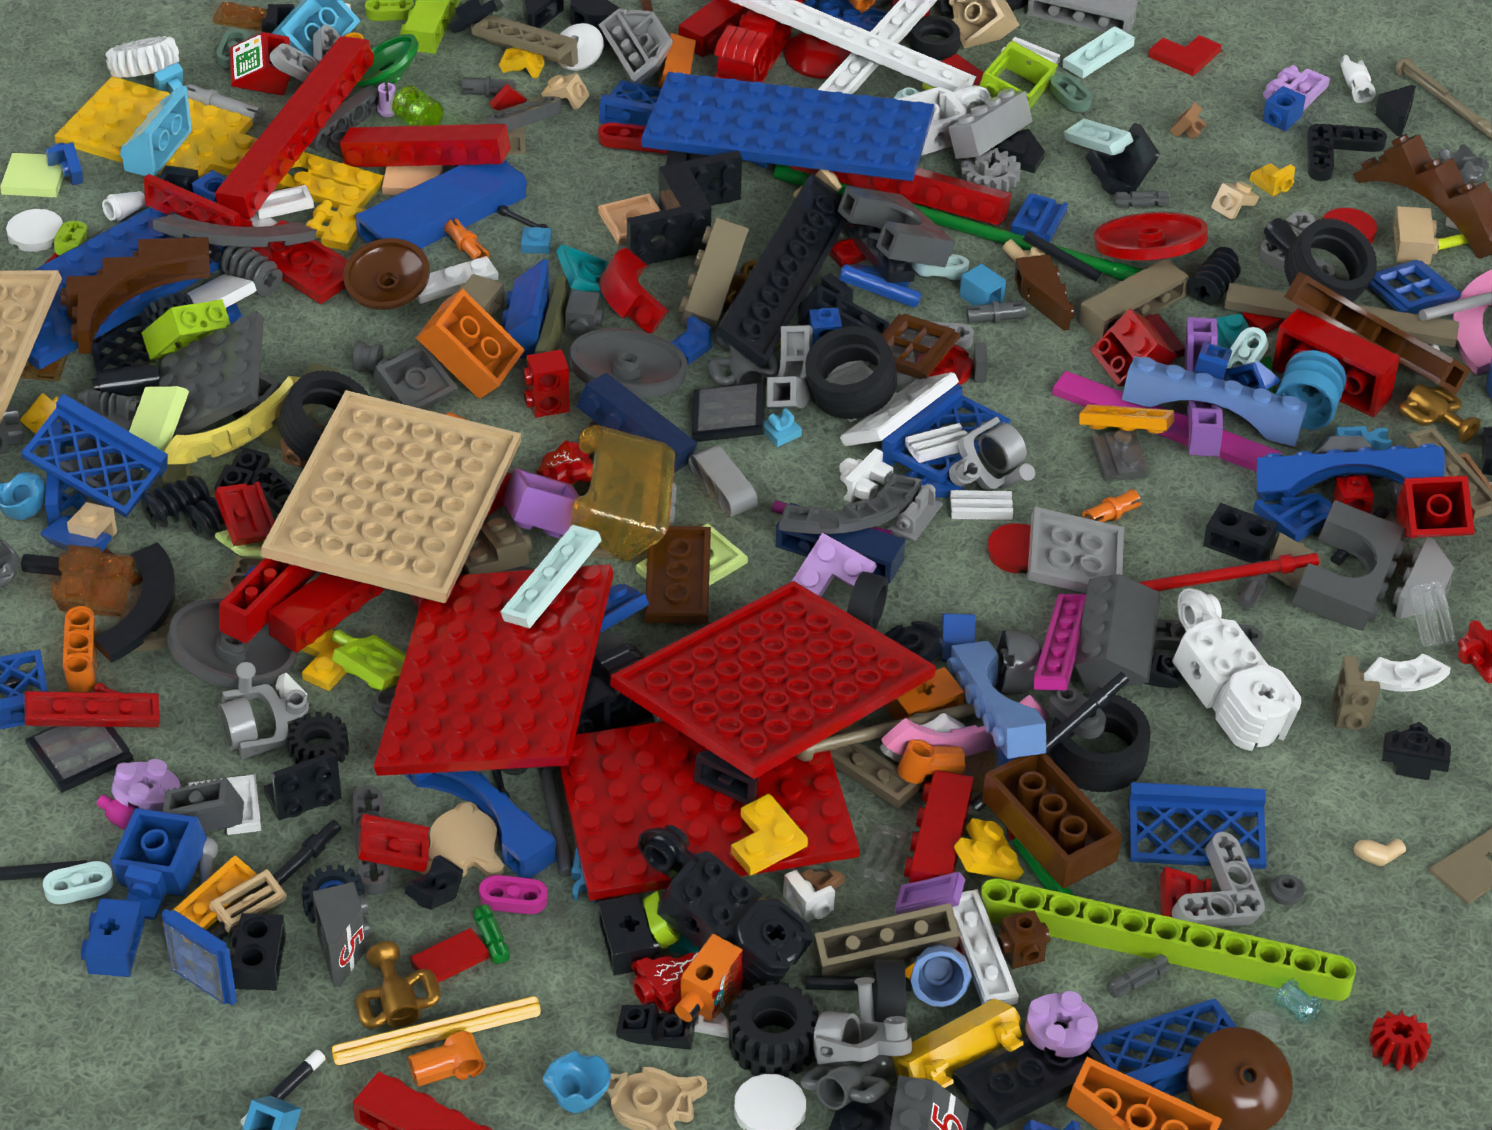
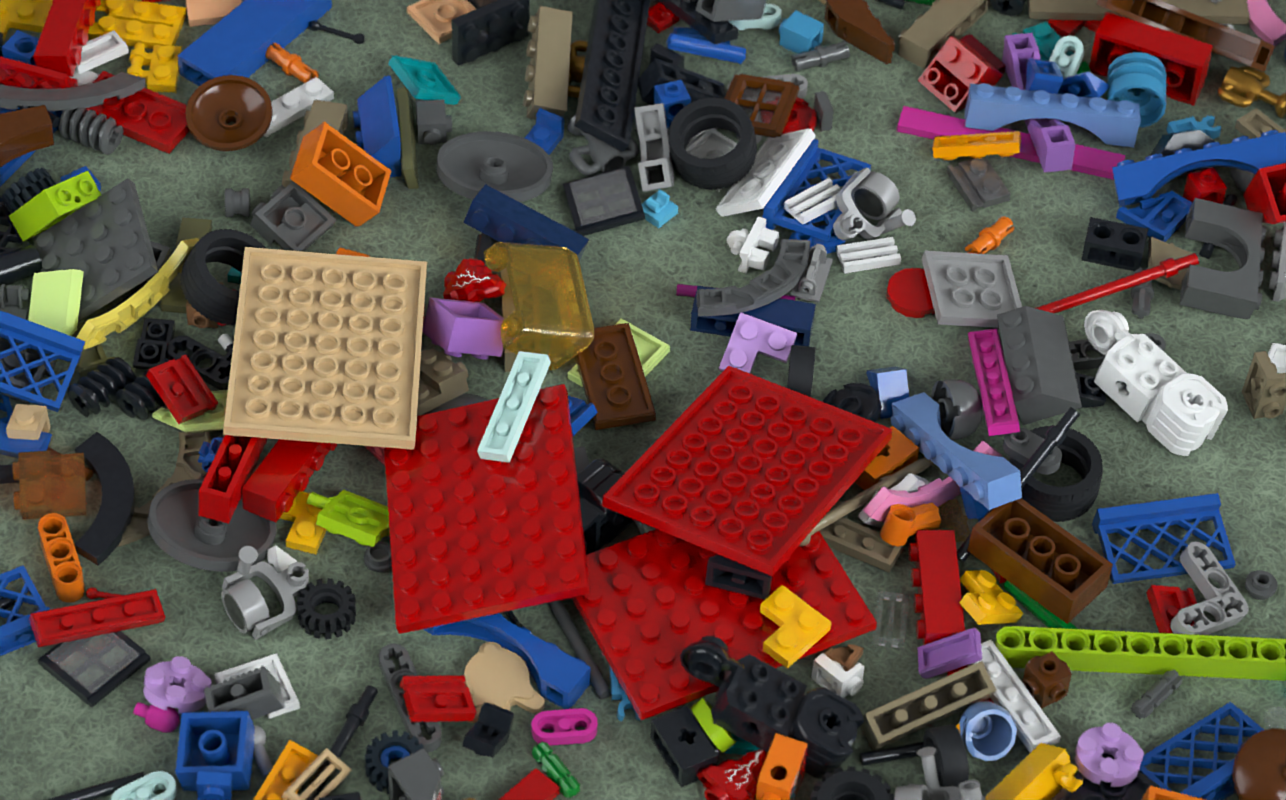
camera: 15 degrees left, 5 degrees up
(223, 287) = (68, 158): white tile -> none
(304, 786) = (331, 659): black bracket -> none
(536, 240) = (358, 52): dark azure plate -> none
(547, 383) = (426, 202): red brick -> none
(626, 295) = (468, 95): red arch -> none
(724, 480) = (622, 272): light grey beam -> none

